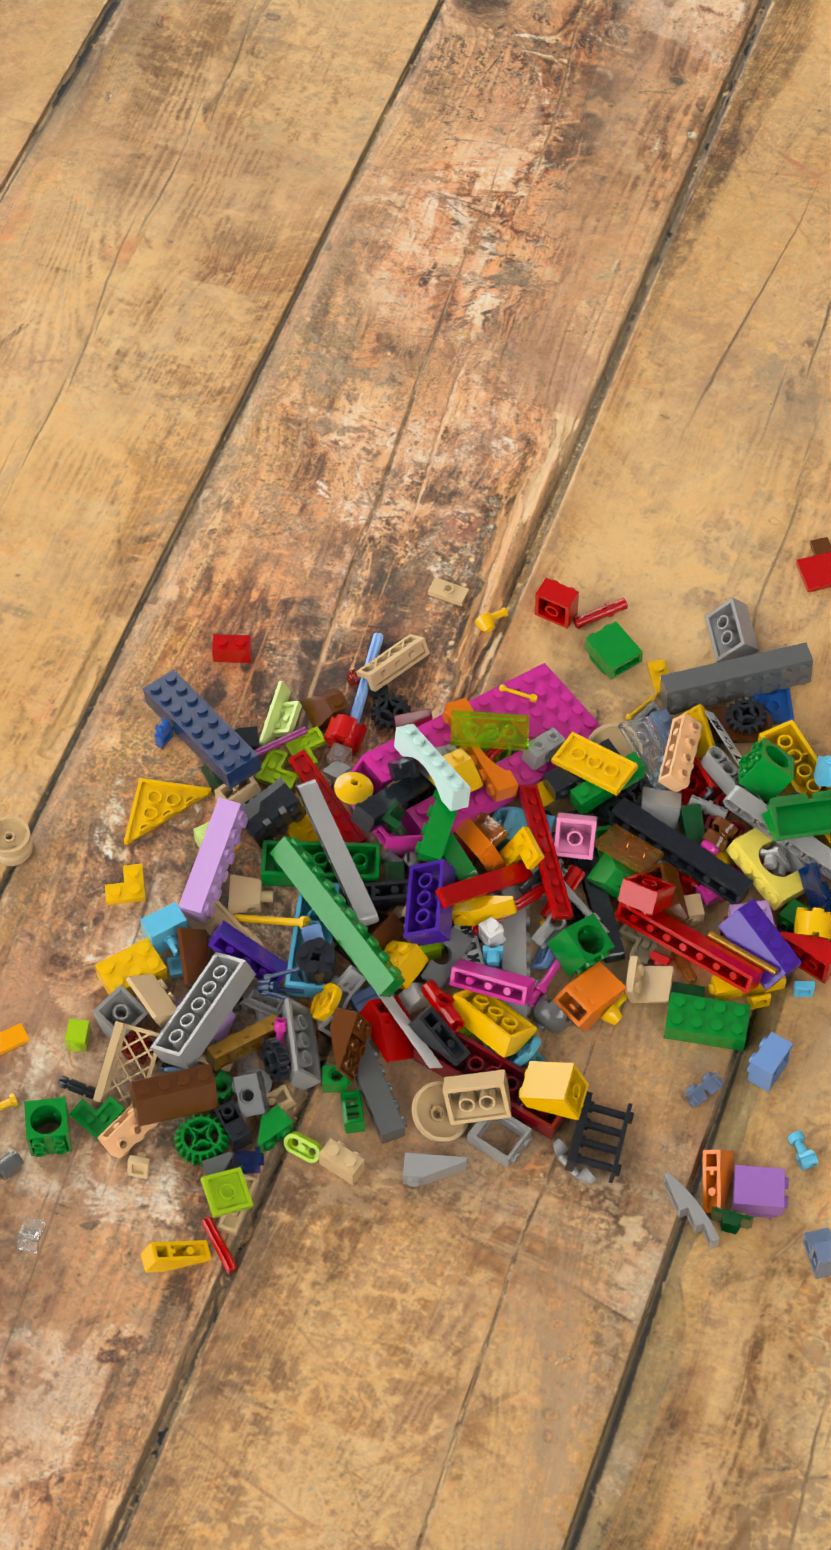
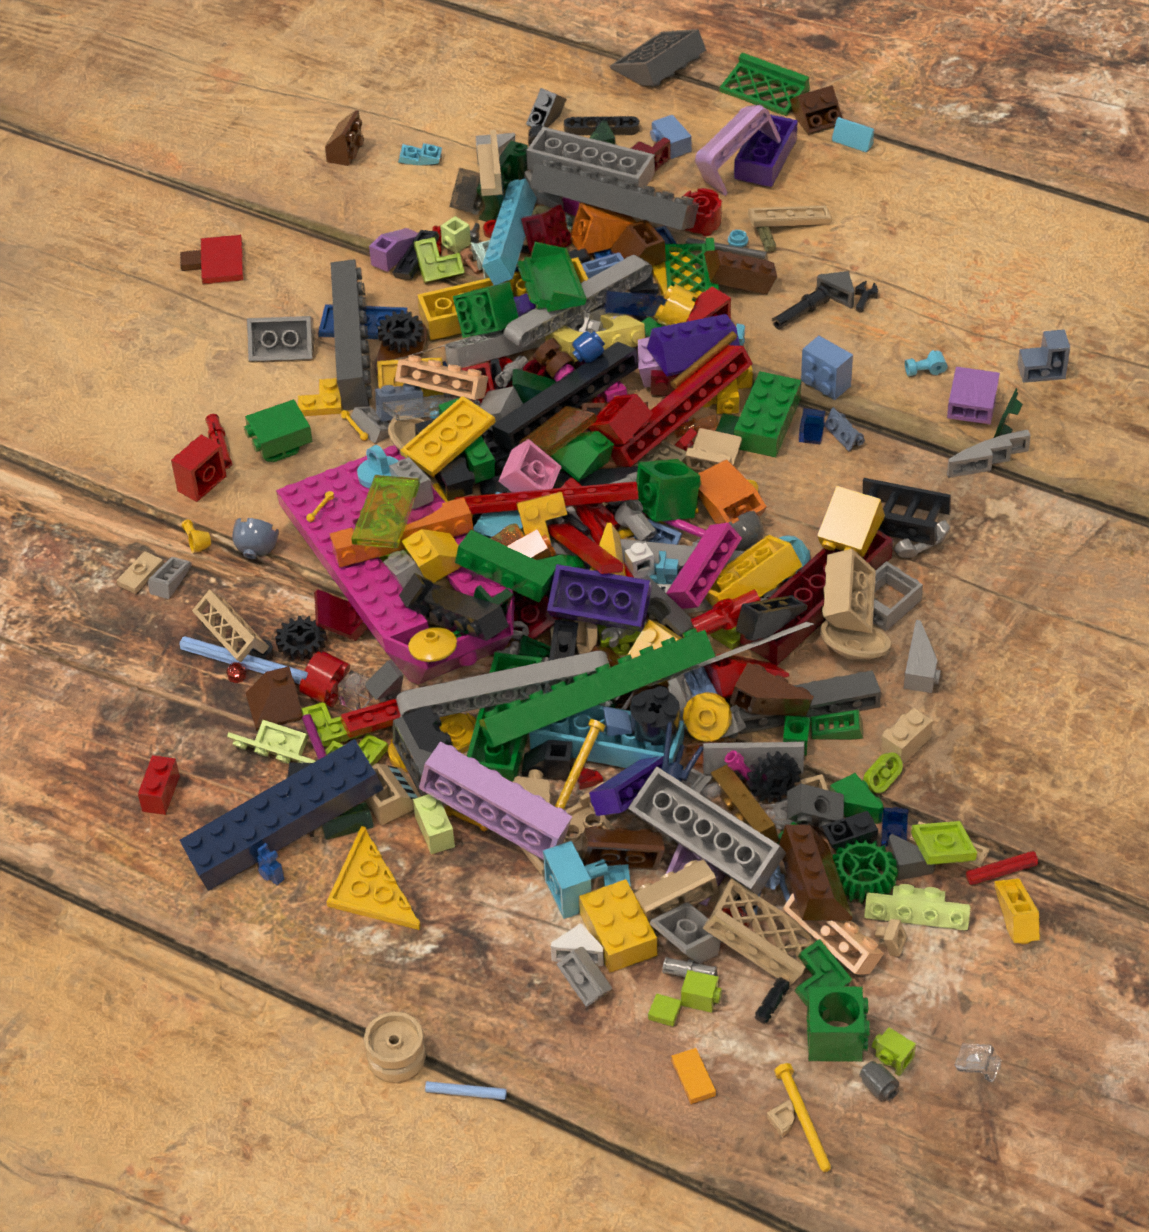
camera: 80 degrees left, 10 degrees down
(34, 1173) = (894, 1050): none -> lime brick
(62, 1014) = (664, 1009): none -> lime tile
(83, 955) = (584, 976): none -> light grey slope
(96, 1034) = (680, 967): none -> light grey pin
(110, 943) = (574, 939): none -> white slope
(131, 890) = (488, 921): yellow plate -> none
(174, 1182) = (917, 907): none -> yellowish green bracket
(279, 934) = (589, 778): none -> red tile
(284, 902) = (551, 758): none -> black slope
(445, 616) = (167, 579): none -> light grey slope
(451, 787) = (473, 530): light aqua arch -> none
(489, 658) = (254, 537): none -> sand blue cylinder
(565, 723) = (376, 464): none -> medium azure tile
(699, 1059) = (812, 426): none -> clear blue panel
(717, 1177) = (955, 426): orange slope -> none
(732, 855) = (588, 347): none -> blue head

